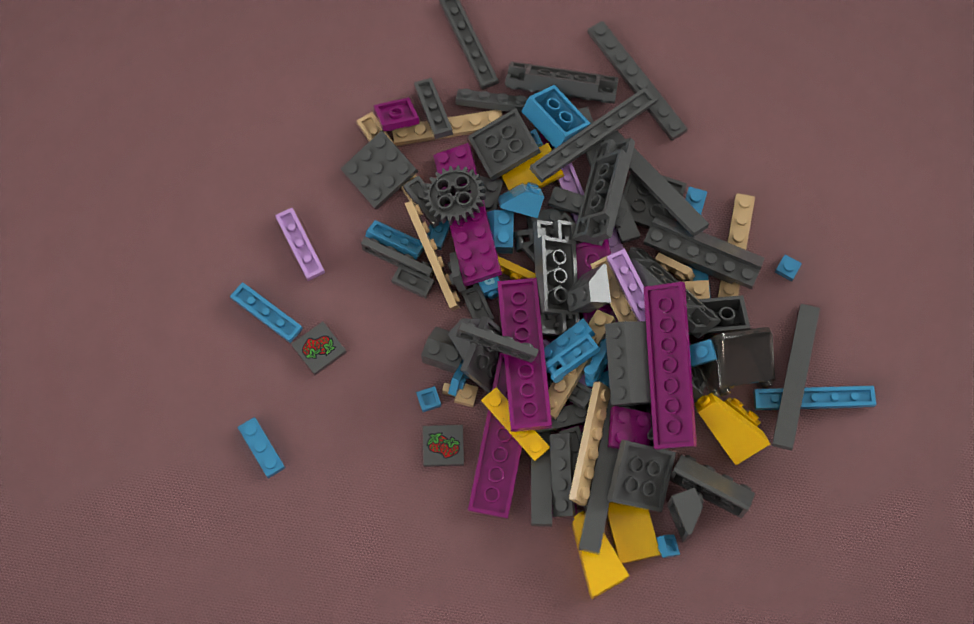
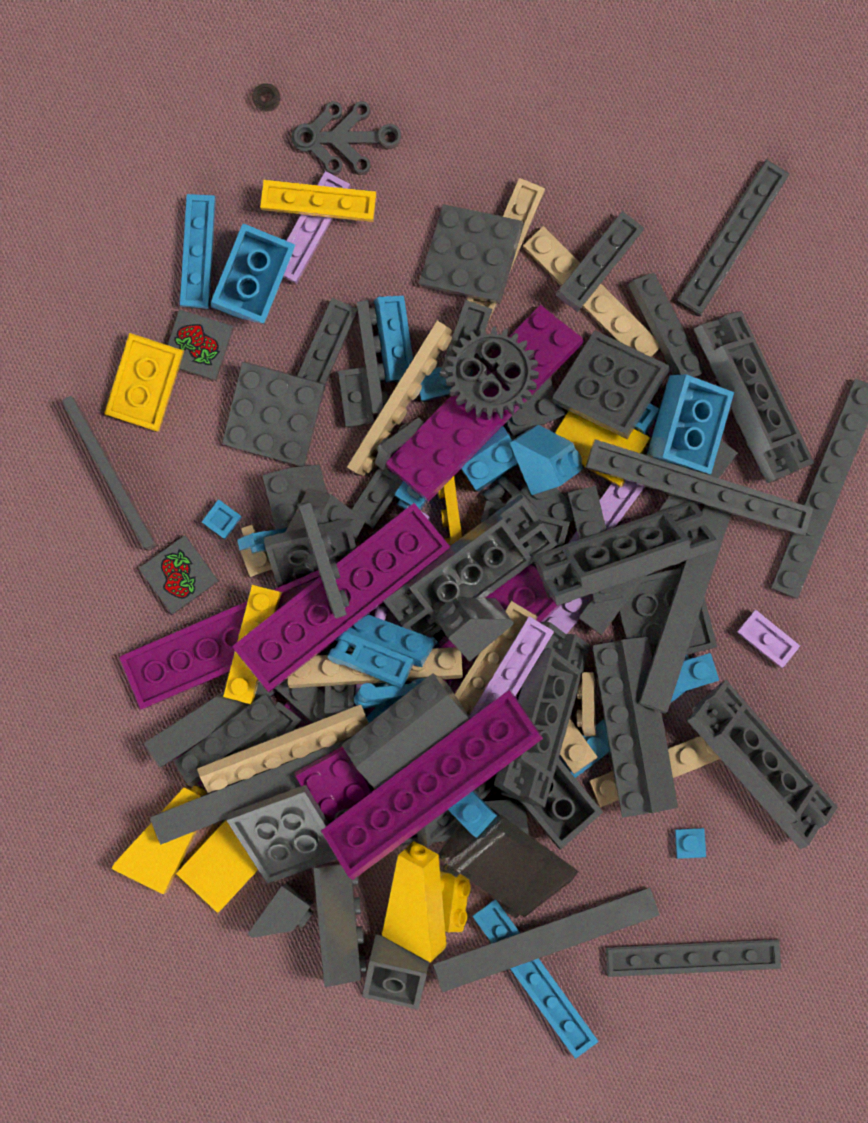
camera: 60 degrees right, 15 degrees up
(206, 217) = (261, 90): none -> clear smoke plate
(261, 447) = (35, 366): dark azure plate -> none
(263, 197) = (342, 137): none -> dark grey plant
(289, 227) = (318, 200): none -> yellow plate
(303, 289) = (252, 274): none -> dark azure slope
(317, 390) = (144, 382): none -> yellow tile
(356, 444) = (109, 473): none -> dark grey tile
(376, 284) = (328, 341): none -> dark grey plate
(389, 329) = (273, 413): none -> dark grey plate
(396, 114) = (560, 221): magenta plate -> none
(668, 546) = (232, 916): dark azure plate -> none
(699, 156) = (768, 639): none -> lavender plate
(763, 473) = (395, 974): none -> dark grey slope
(768, 199) = (762, 763): none -> dark grey slope
(855, 308) = (693, 957): none -> dark grey tile

